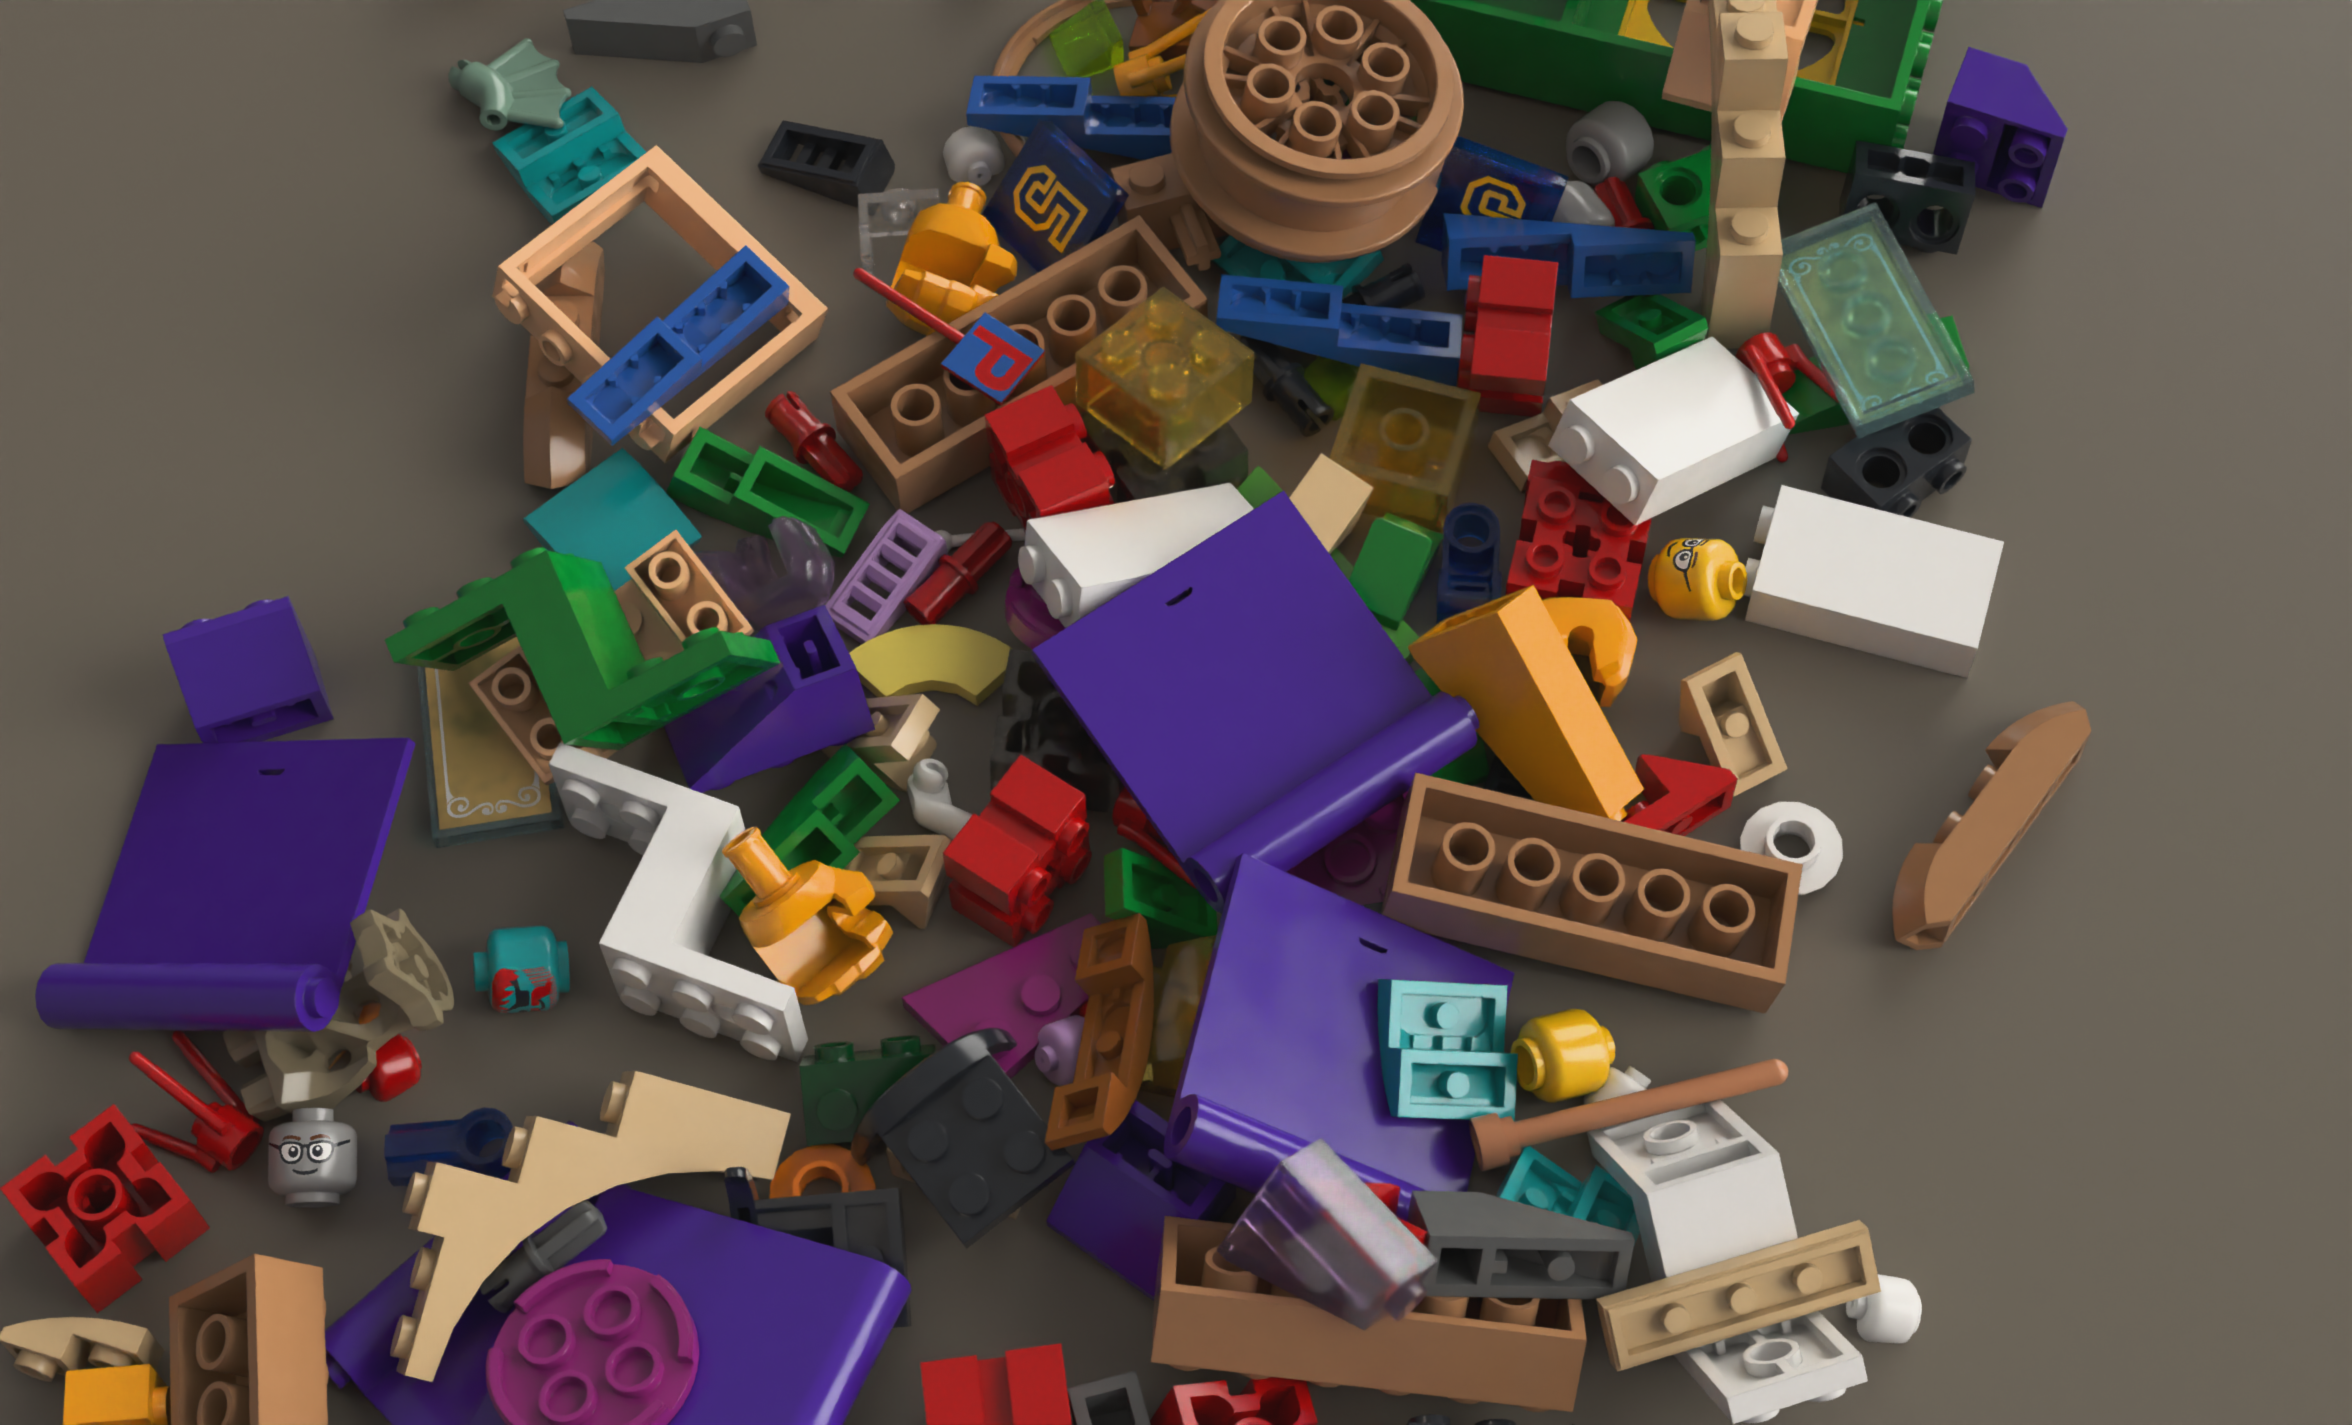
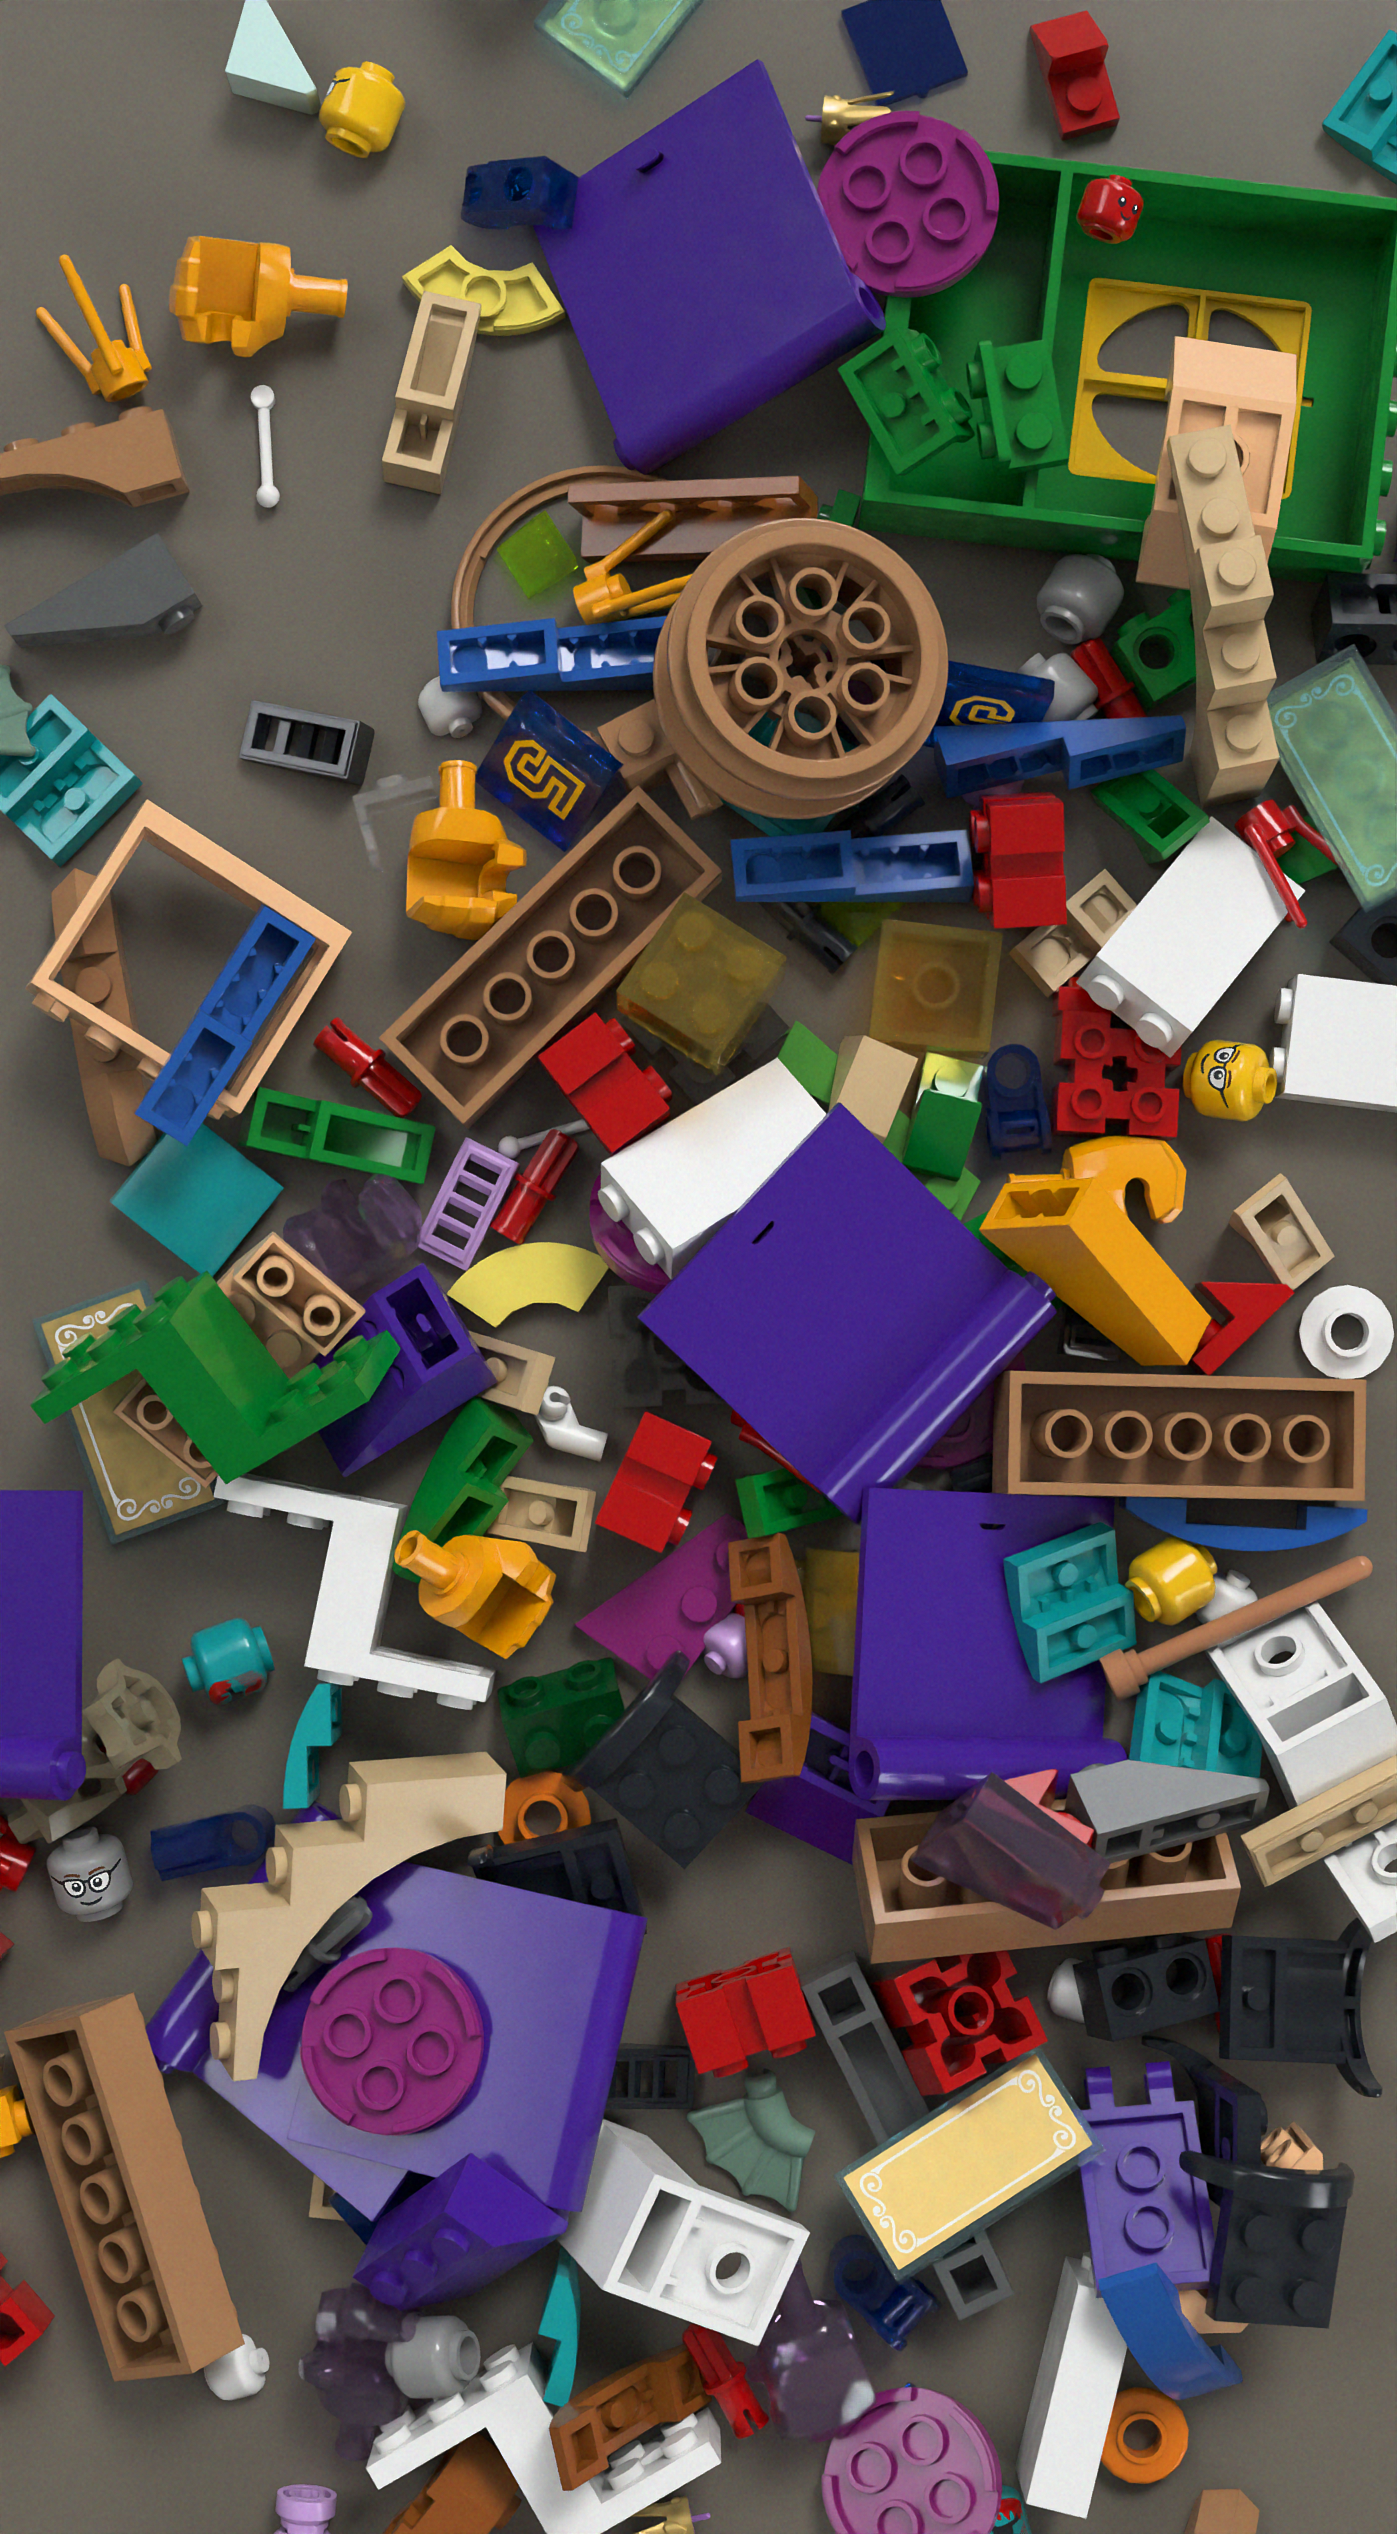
camera: 15 degrees left, 25 degrees up
(590, 1041) = (318, 1726): none -> teal slope
(986, 358) = (523, 976): piece -> none
(1649, 1025) = (1313, 1525): none -> blue slope

